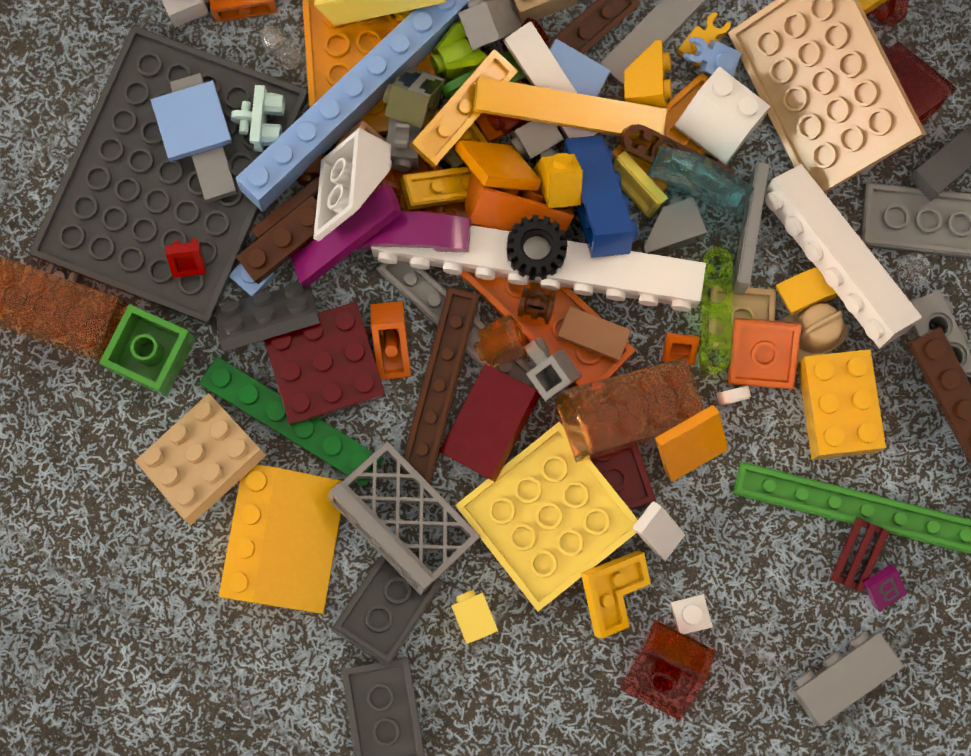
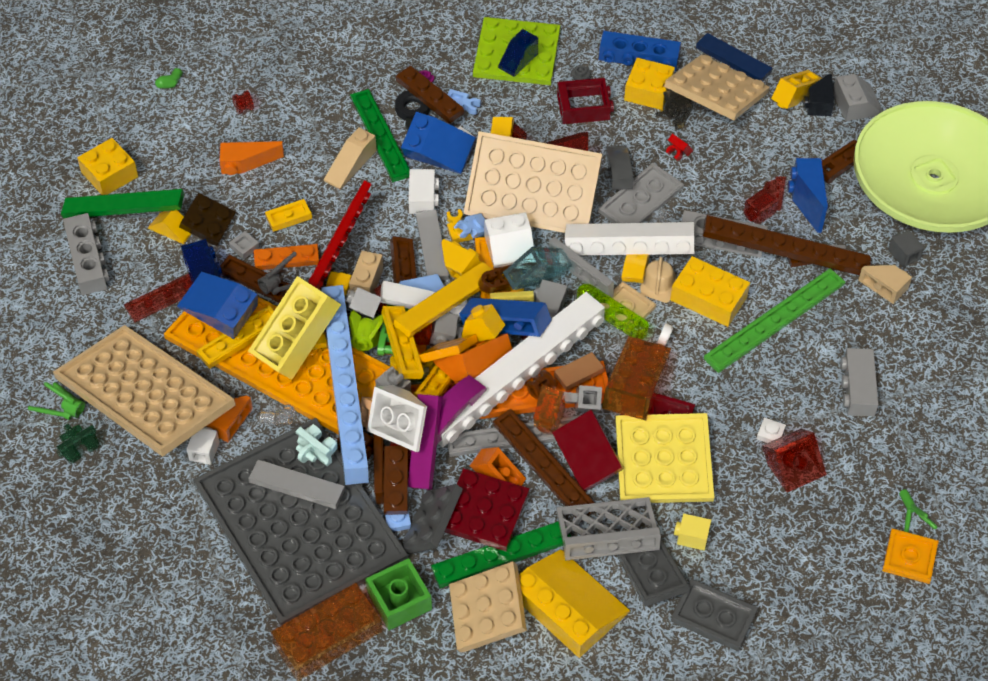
camera: 55 degrees left, 25 degrees down
(185, 258) = (362, 535): red tile -> none
(191, 121) = (284, 479): light blue tile -> none
(413, 97) = (375, 360): olive brick -> none
(546, 230) = (513, 344): black tyre -> none
(607, 586) = (725, 455): yellow plate -> none
(658, 530) = (714, 410): white tile -> none
(680, 346) = (616, 341): orange slope -> none
(692, 443) = (677, 365): light orange tile -> none
(764, 353) = (654, 305): orange tile -> none
(871, 560) = (804, 337): dark red tile -> none
(885, 587) = (823, 335): magenta tile -> none

